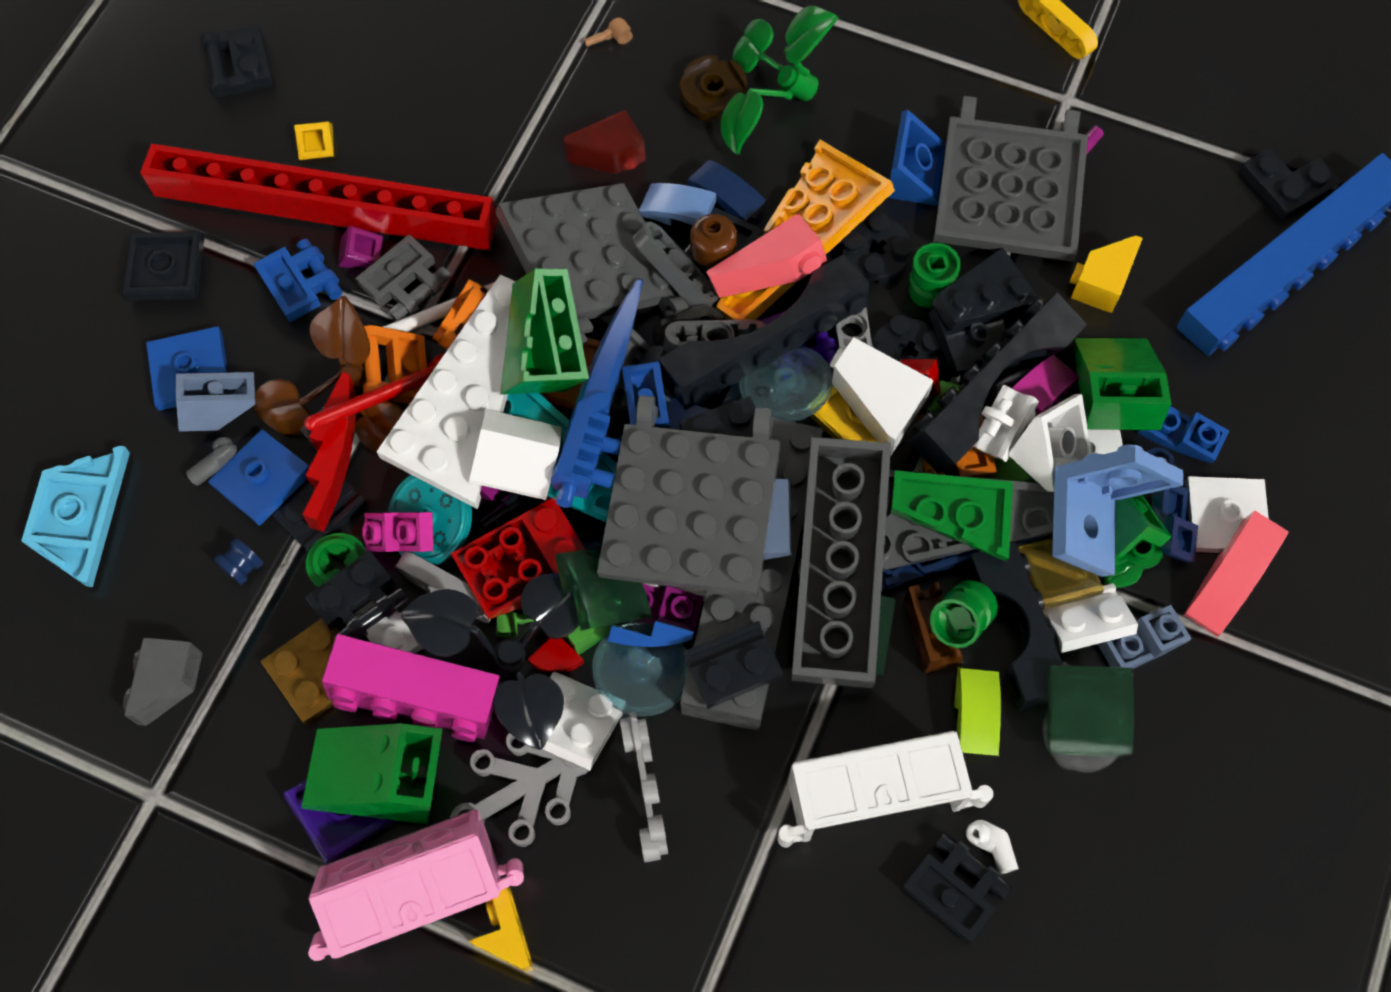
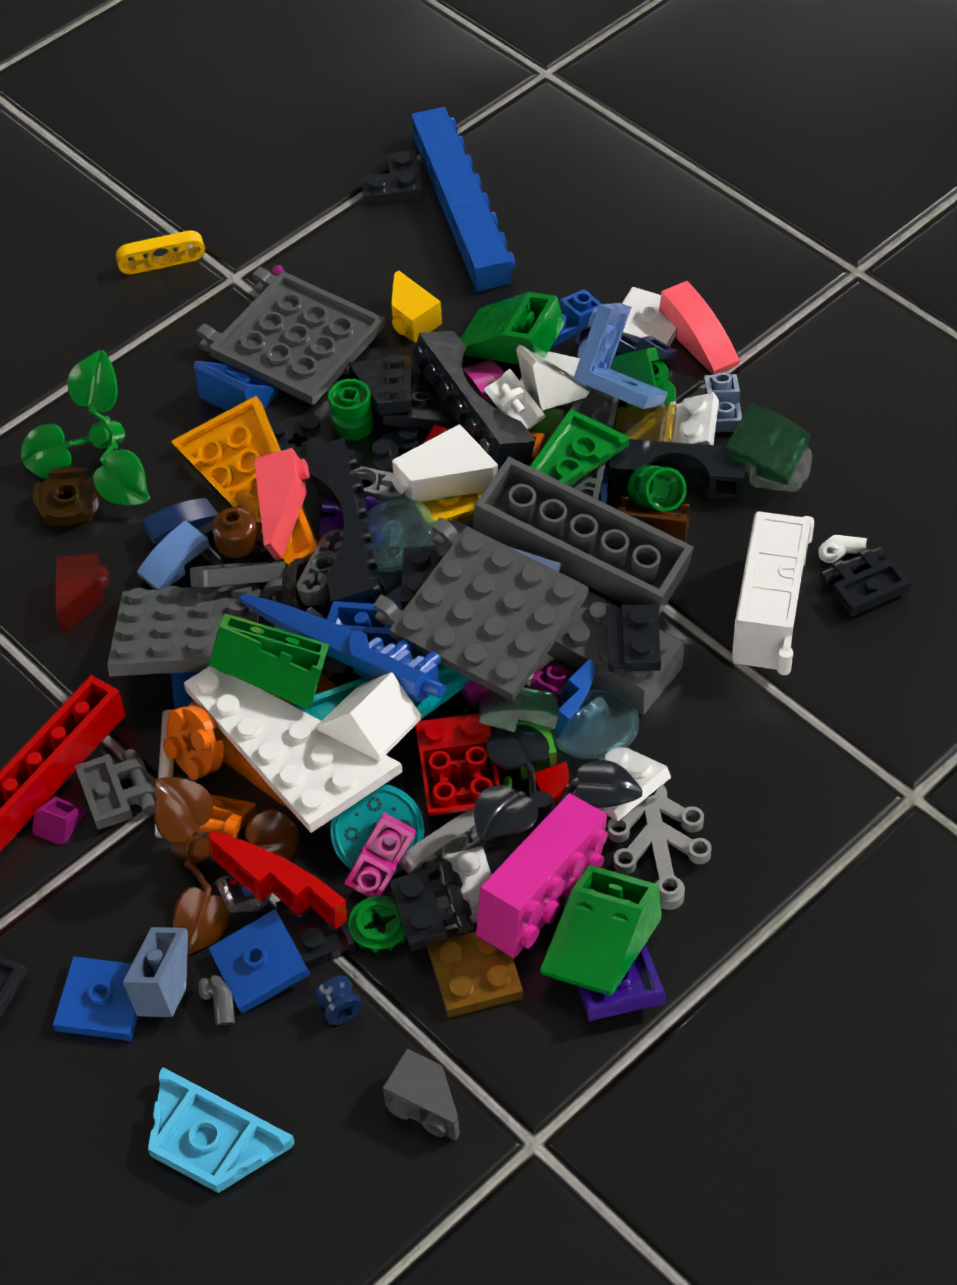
camera: 65 degrees left, 15 degrees down
(288, 285) = (64, 883): blue plate -> none
(370, 398) = (232, 782): red piece -> none
(406, 885) = (715, 933): bright pink container -> none
(508, 942) = (788, 882): yellow slope -> none
(637, 739) = (671, 708): light grey plant -> none
(979, 710) = (726, 511): lime slope -> none

